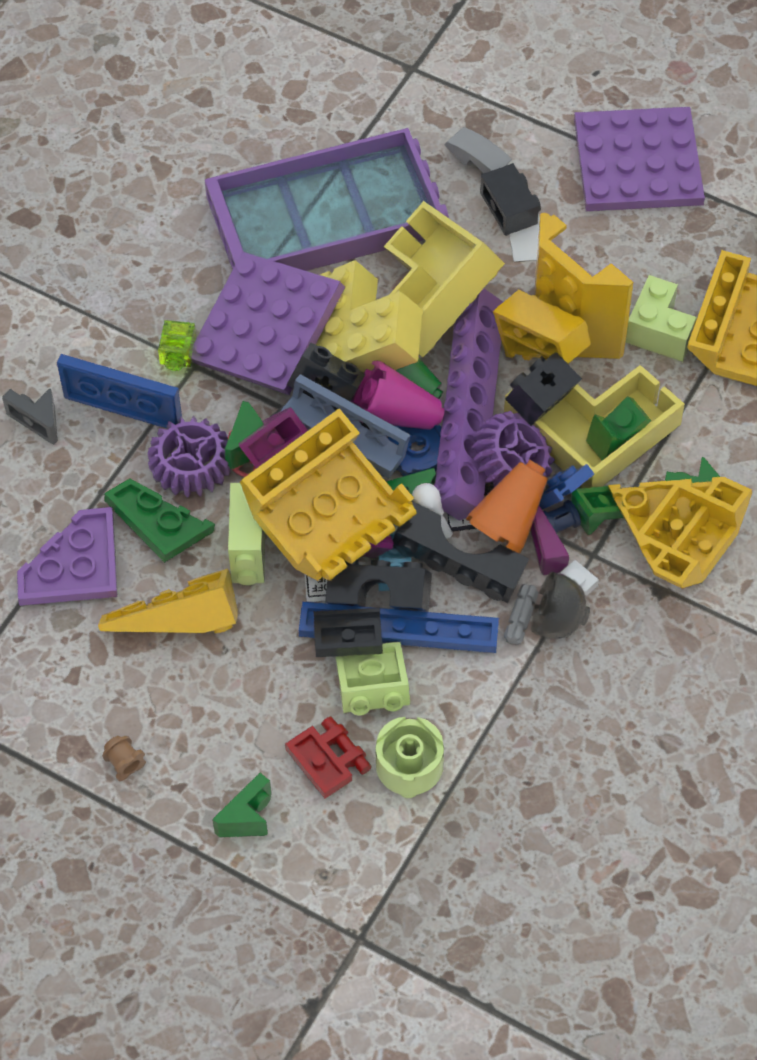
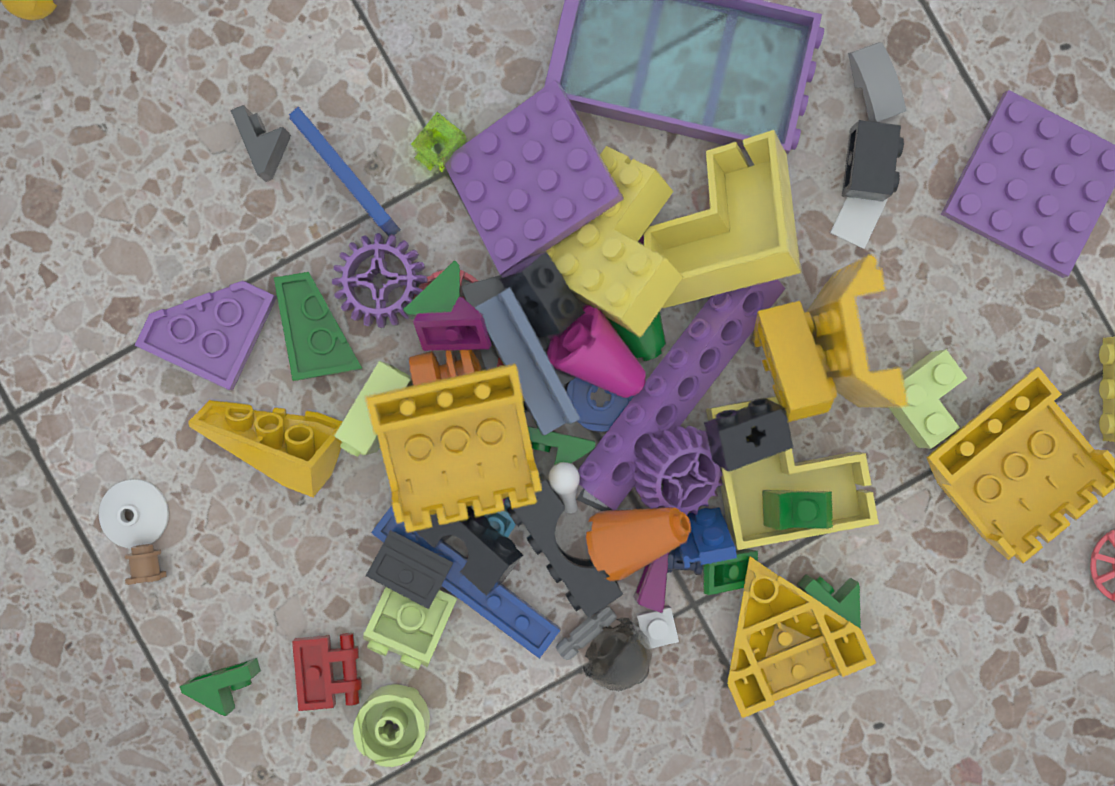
camera: 30 degrees right, 30 degrees up
(81, 745) = (149, 511): none -> white dish

